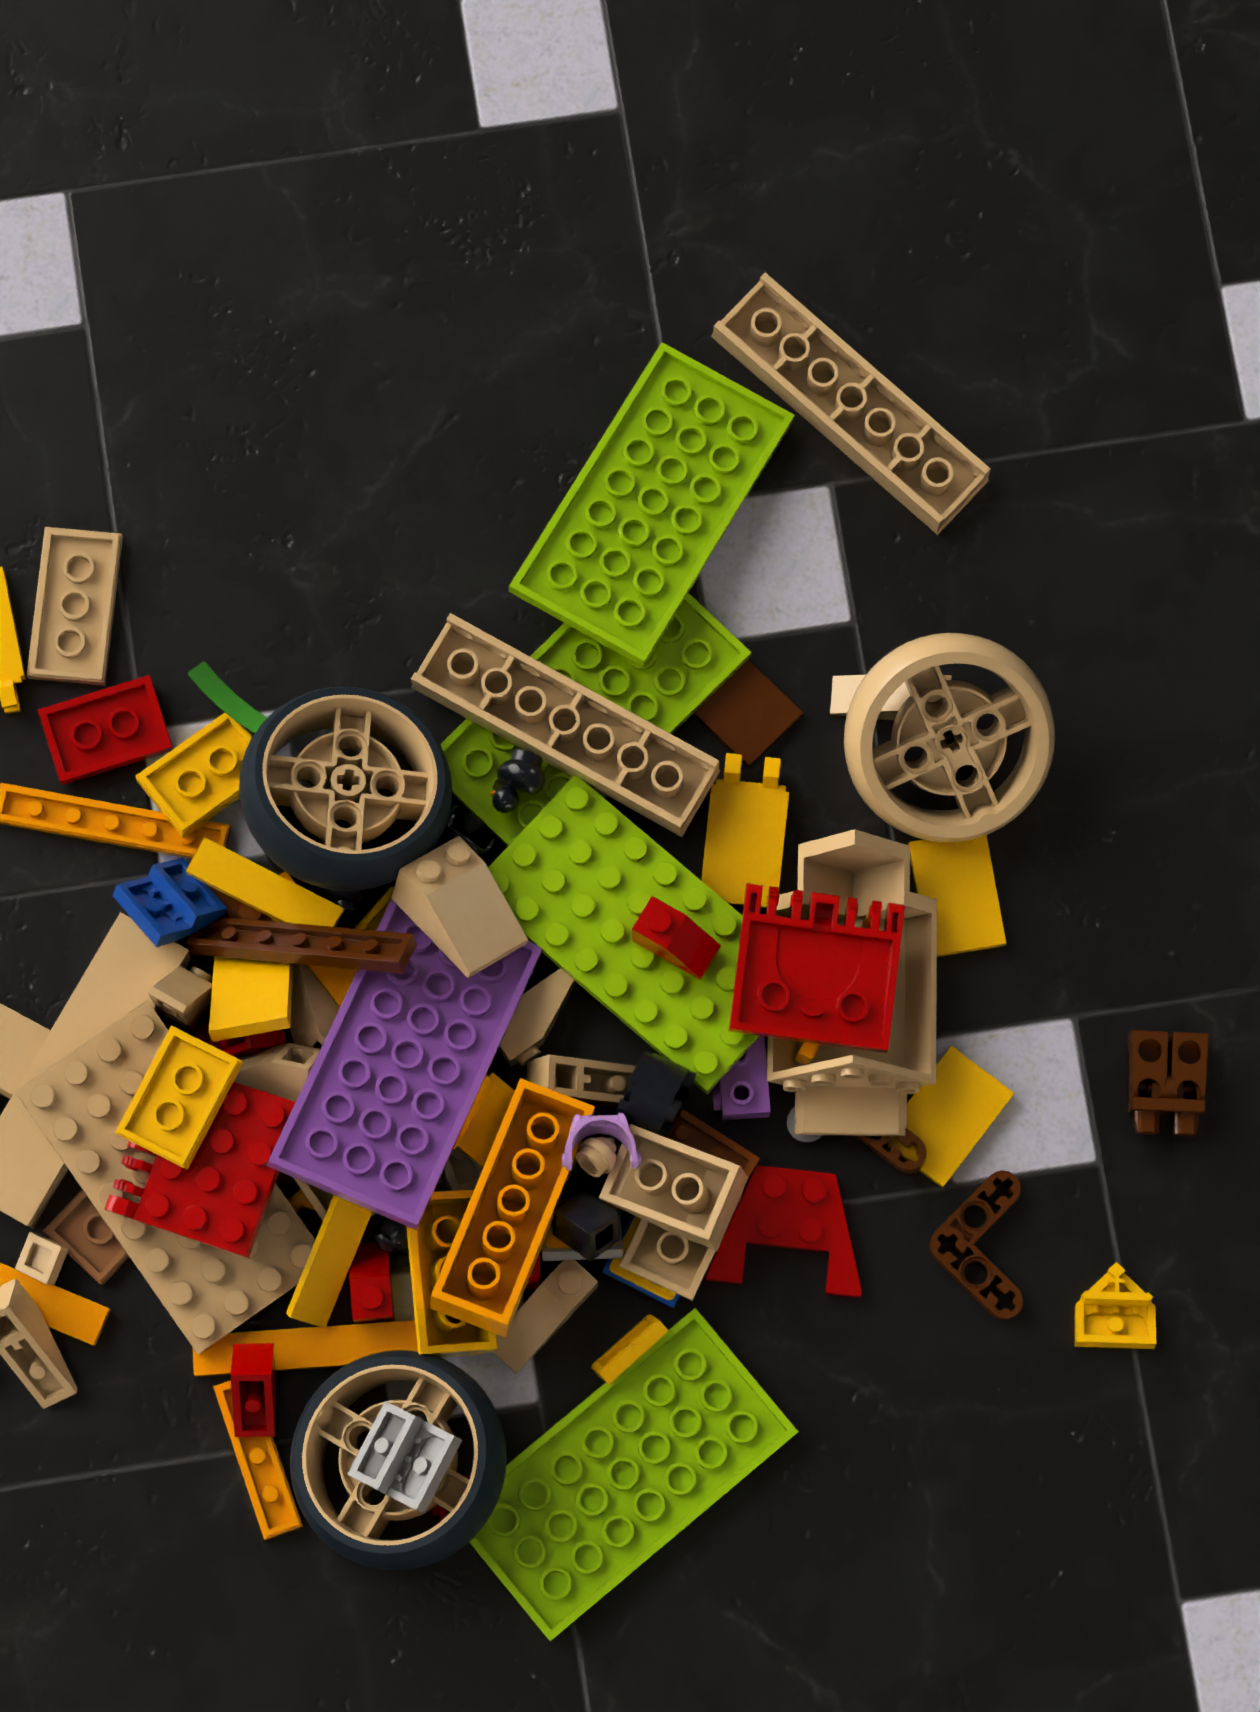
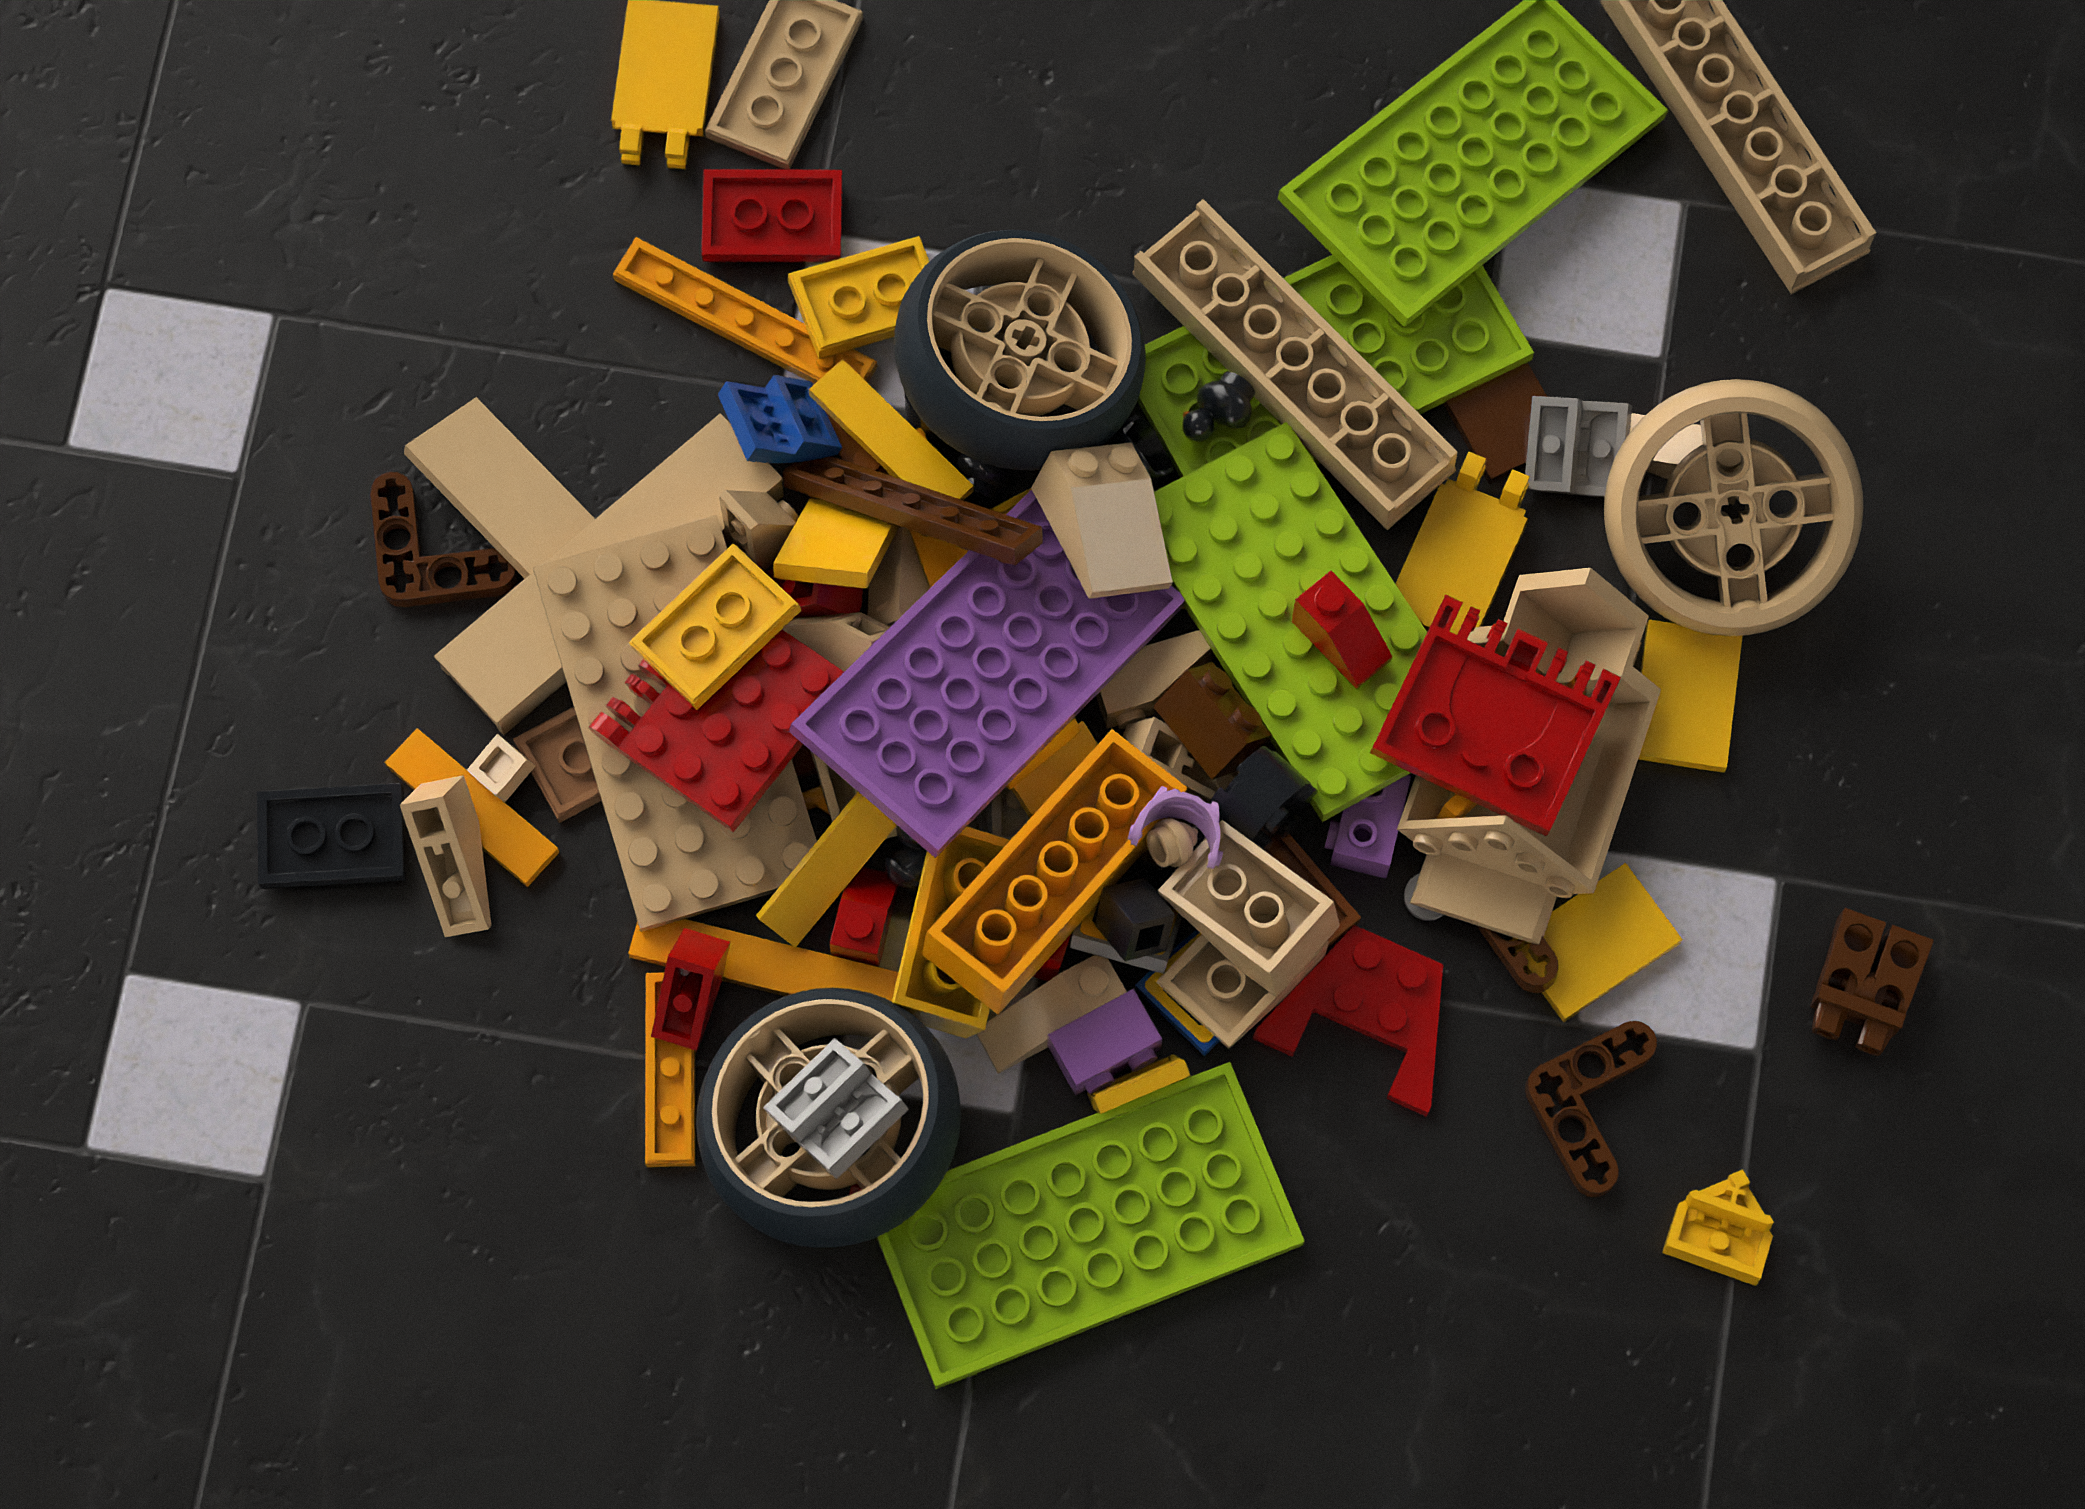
camera: 20 degrees right, 5 degrees down
(225, 697) = (914, 216): bright green sticker -> none
(593, 1326) = (1105, 1043): none -> medium lavender brick
(596, 1042) = (1212, 720): none -> reddish brown slope
(807, 718) = (1574, 444): none -> light grey slope

